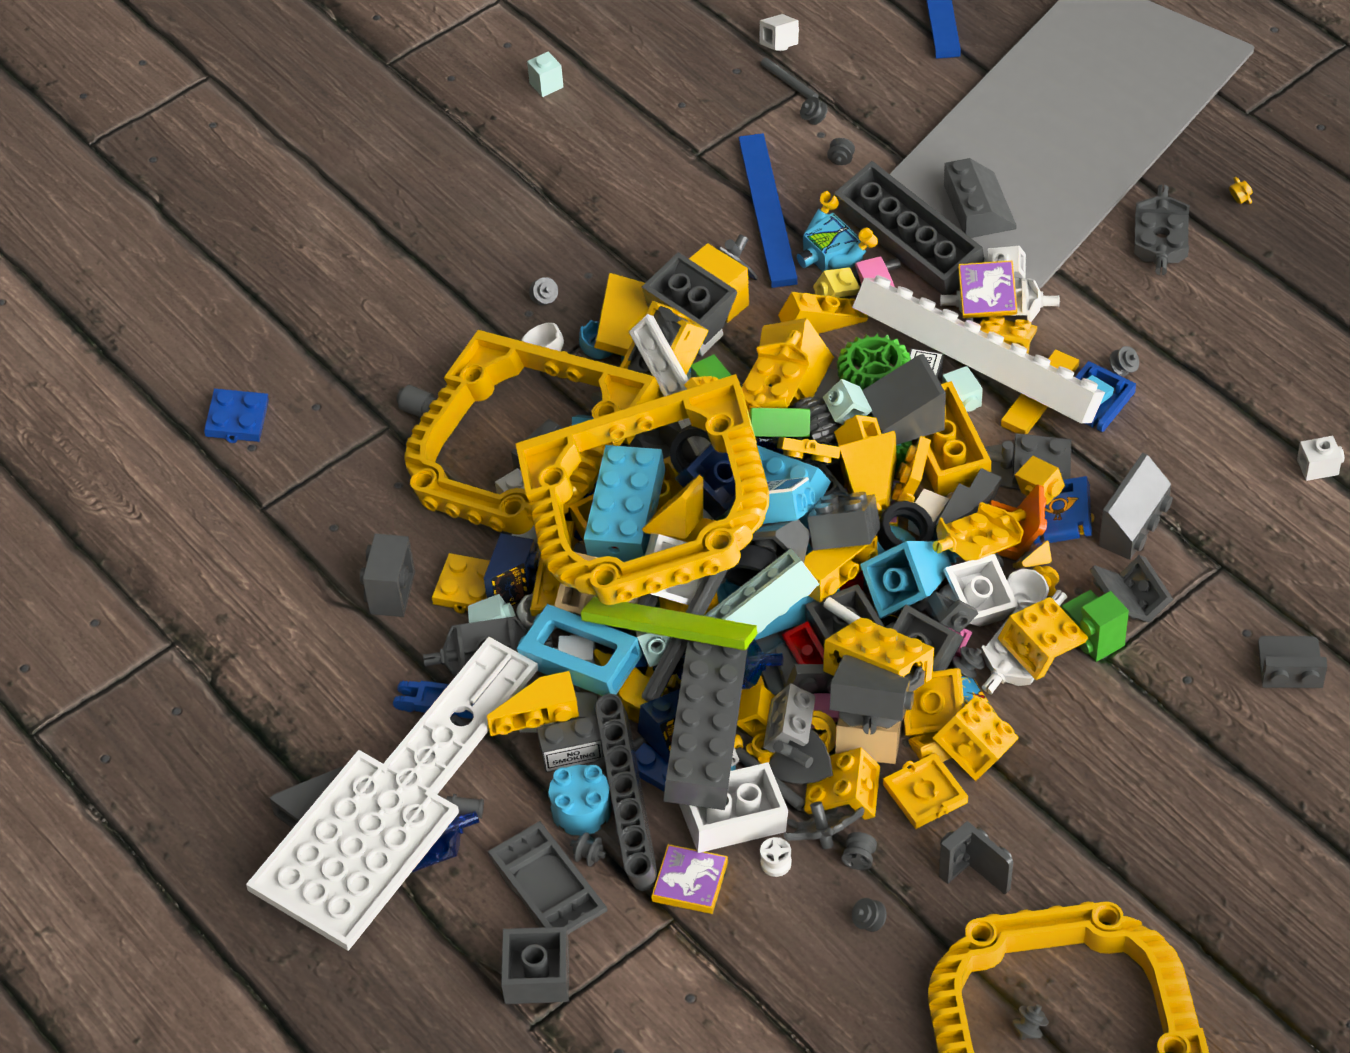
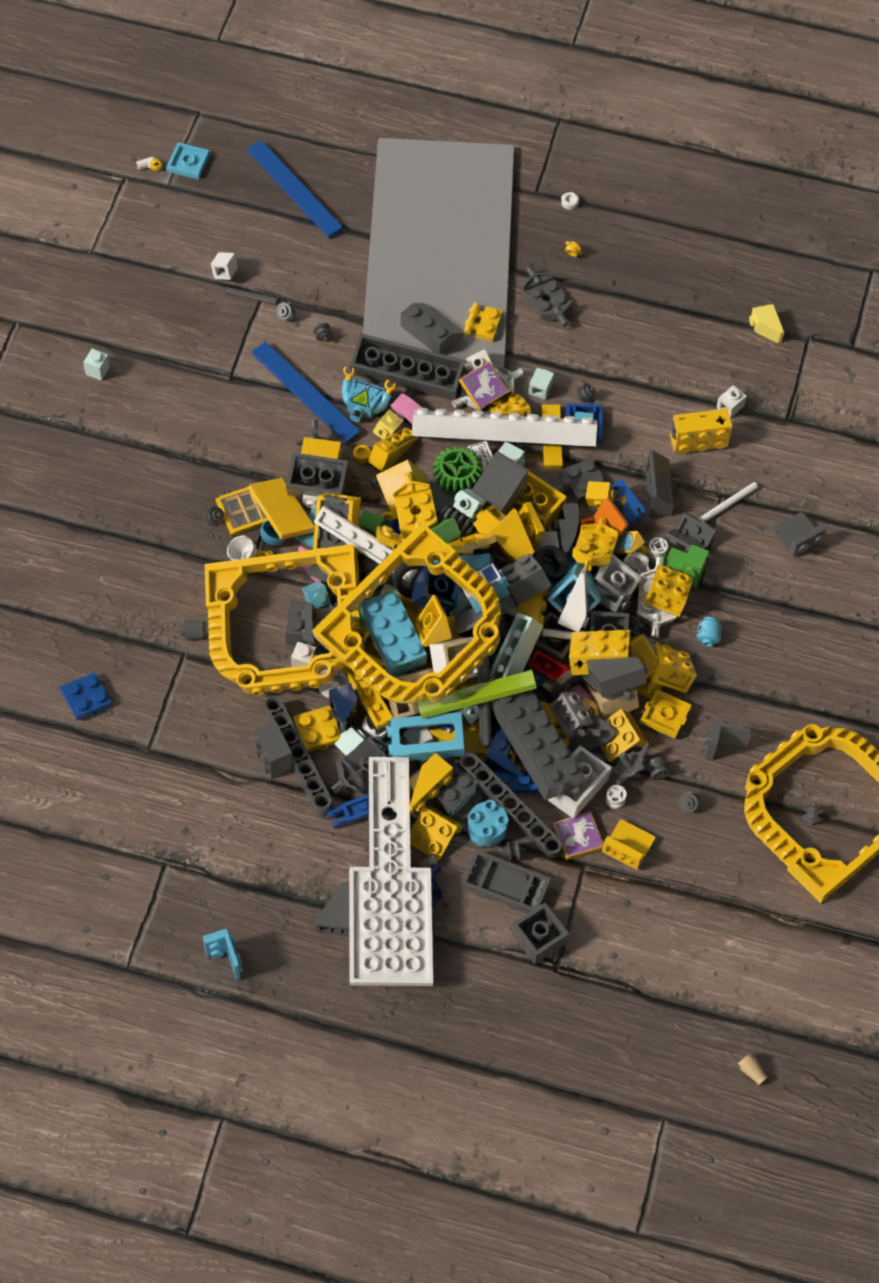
camera: 40 degrees left, 10 degrees up
(143, 766) = (219, 943): none -> medium azure bracket
(416, 601) = (303, 763): none -> dark grey beam
(507, 771) = (433, 832): none -> yellow bracket
(578, 301) = (241, 511): none -> clear piece
(744, 923) = (628, 844): none -> yellow bracket
(776, 303) = (361, 454): none -> yellow tile
(890, 583) = (576, 607): none -> white slope
(1057, 228) = (488, 322): none -> yellow plate
(1065, 719) = (709, 631): none -> medium azure head
(1072, 324) = (541, 383): none -> light aqua brick
(1073, 583) = (657, 548): none -> white wheel
(1220, 579) = (727, 503): none -> white bar
(1243, 469) = (700, 431): none -> yellow piece
(1283, 138) = (570, 200): none -> white tile

